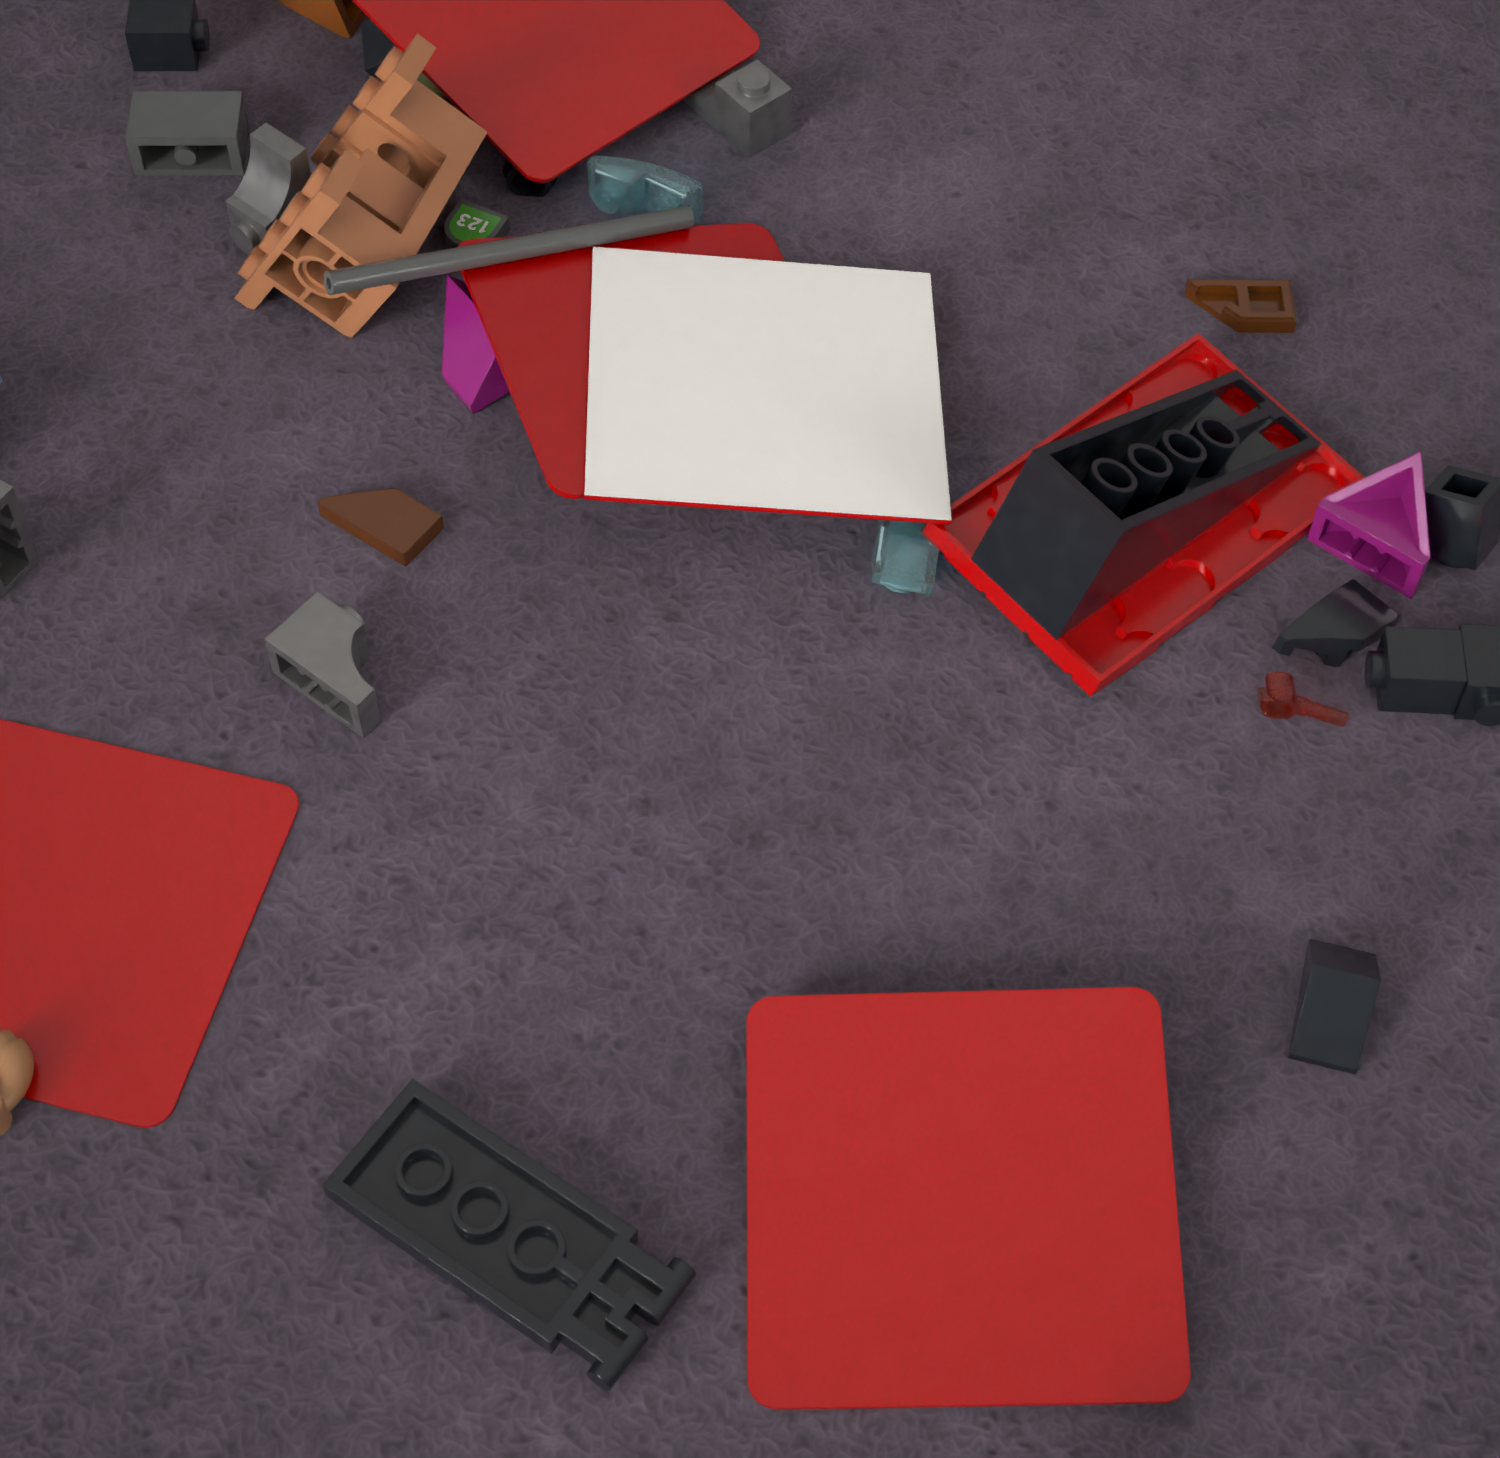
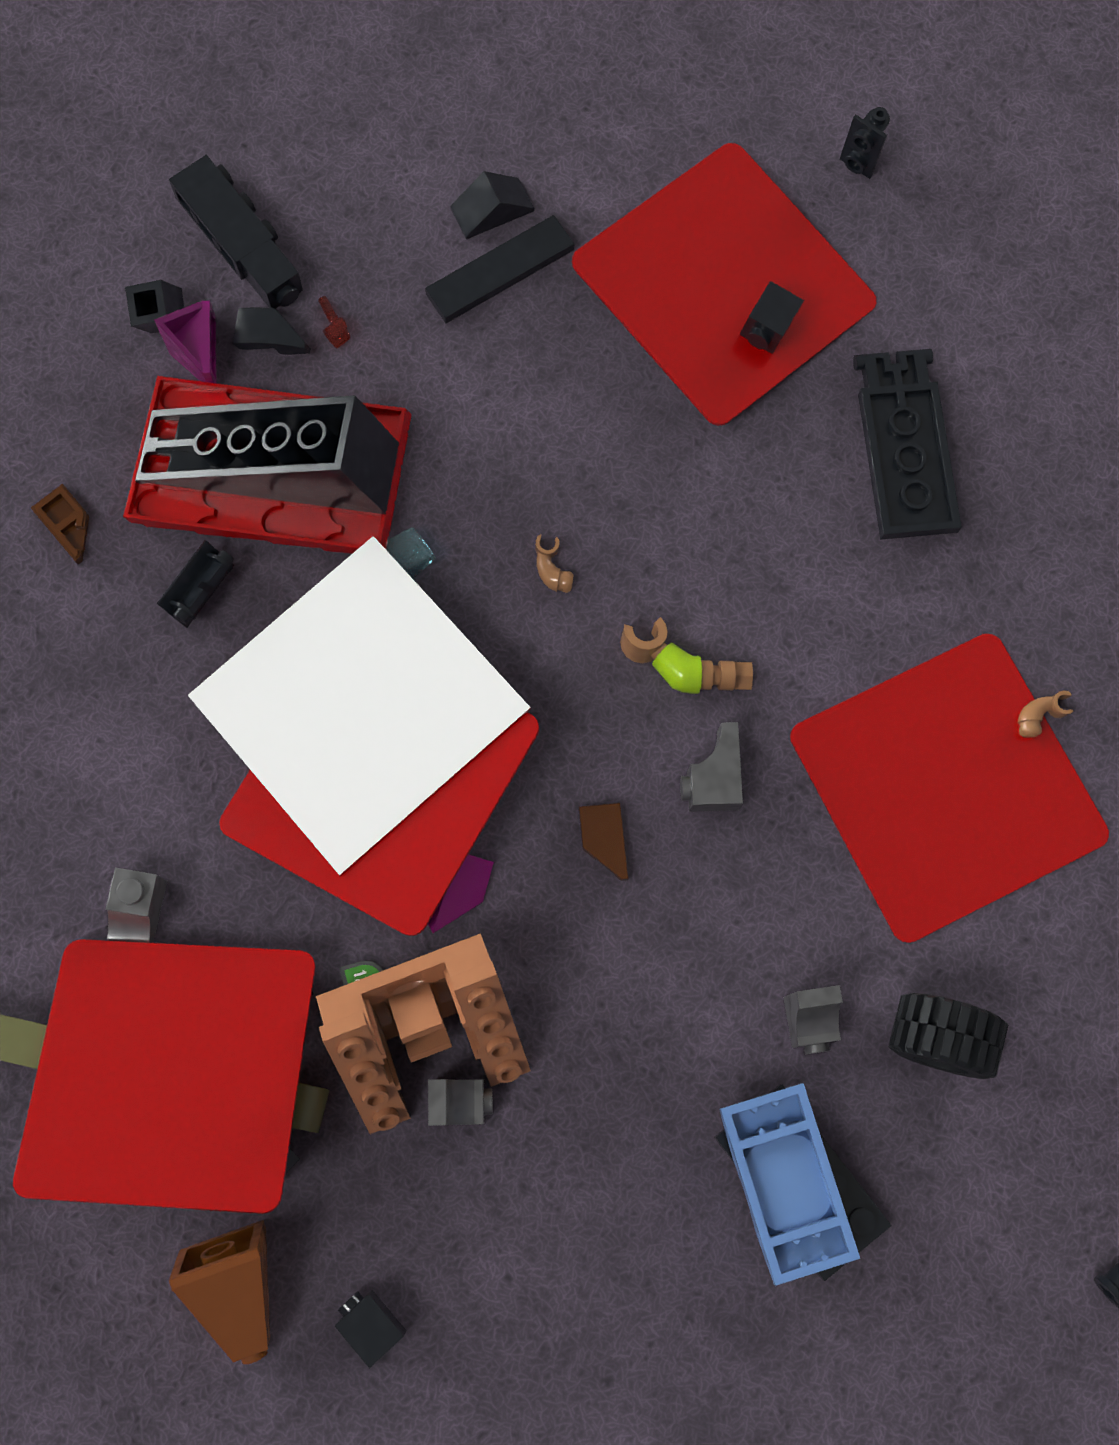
camera: 135 degrees left, 20 degrees up
(187, 133) = (437, 1223): dark grey brick -> none
(487, 723) = (679, 668): none -> medium nougat piece
(506, 250) = (394, 901): dark grey piece -> none
(636, 186) = (262, 912): clear light blue slope -> none
(741, 690) = (548, 572): none -> medium nougat arm
(842, 1176) = (771, 317): none -> black brick
(1054, 353) = (196, 583): none -> black hinge
(1224, 945) = (499, 269): none -> black tile

